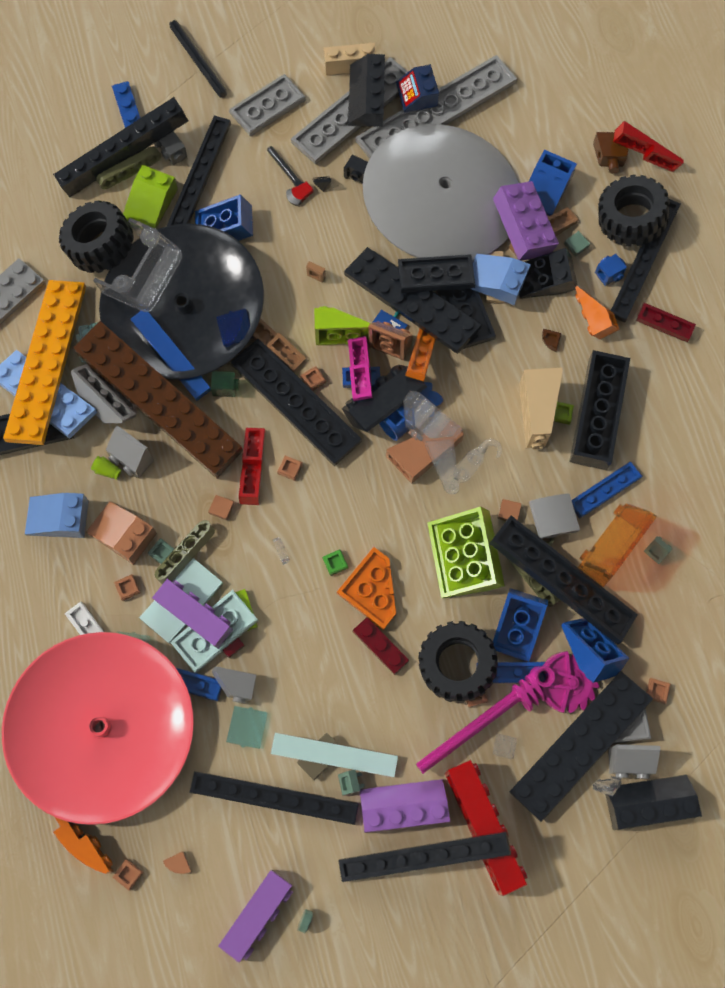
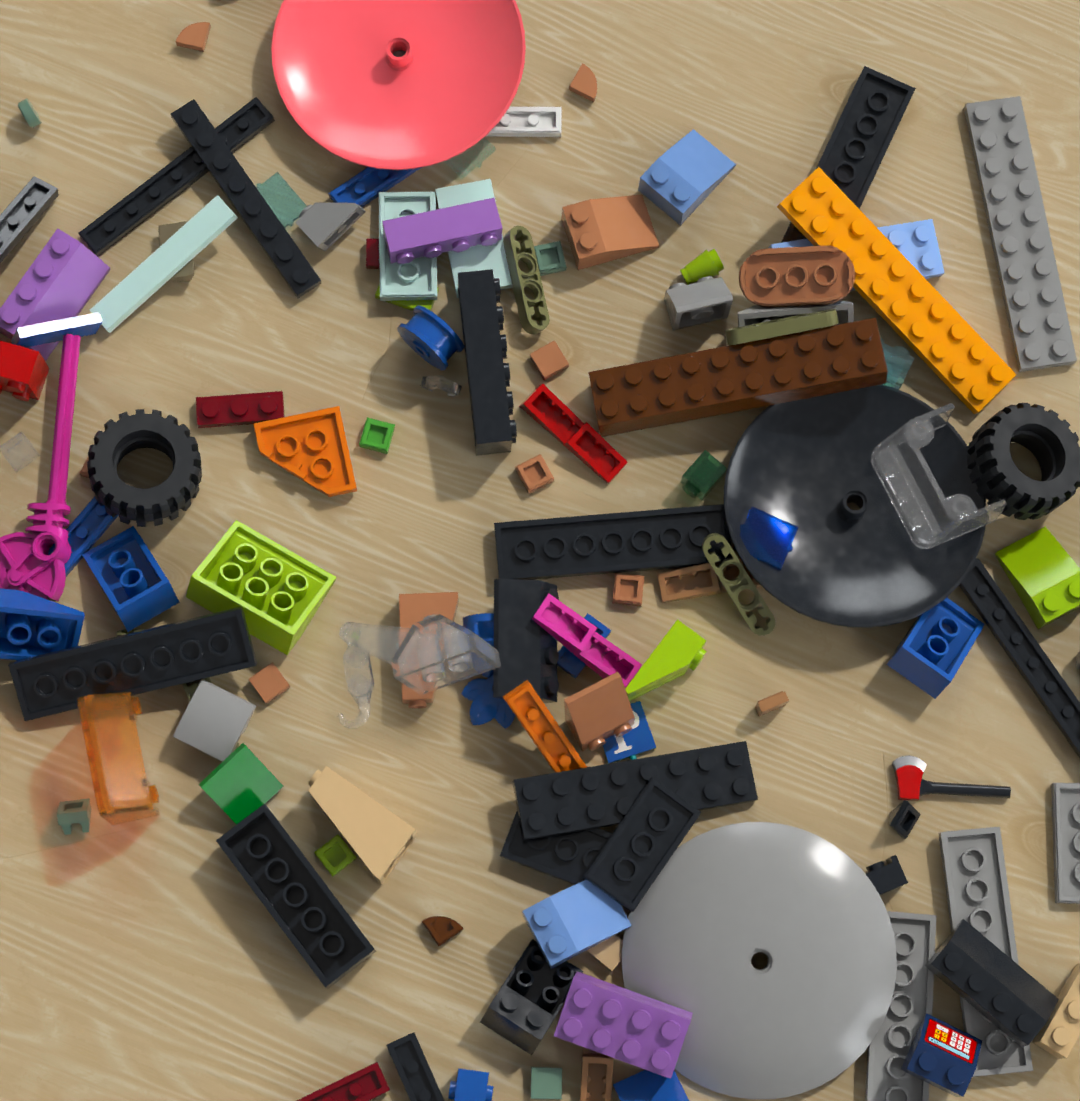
camera: 125 degrees right, 5 degrees up
(39, 612) = (584, 83): none -> nougat tile
(77, 407) = (797, 276): none -> nougat tile
(113, 393) = (781, 327): none -> olive beam
(127, 587) = (537, 193): nougat tile -> none
(169, 352) = (799, 443): blue tile -> none
(251, 529) = (484, 362): none -> black brick
(255, 916) = (76, 70): medium lavender brick -> none
(256, 746) = (246, 198): none -> black plate
(260, 570) = (431, 337): none -> blue wheel
(268, 324) = (736, 585): none -> olive beam
(349, 782) = (124, 259): sand green tile -> none
(424, 779) = (54, 330): none -> tile
(572, 479) = (241, 784): none -> green tile
(600, 319) = (426, 1012): orange slope -> none
(605, 489) = (196, 825): blue tile -> none

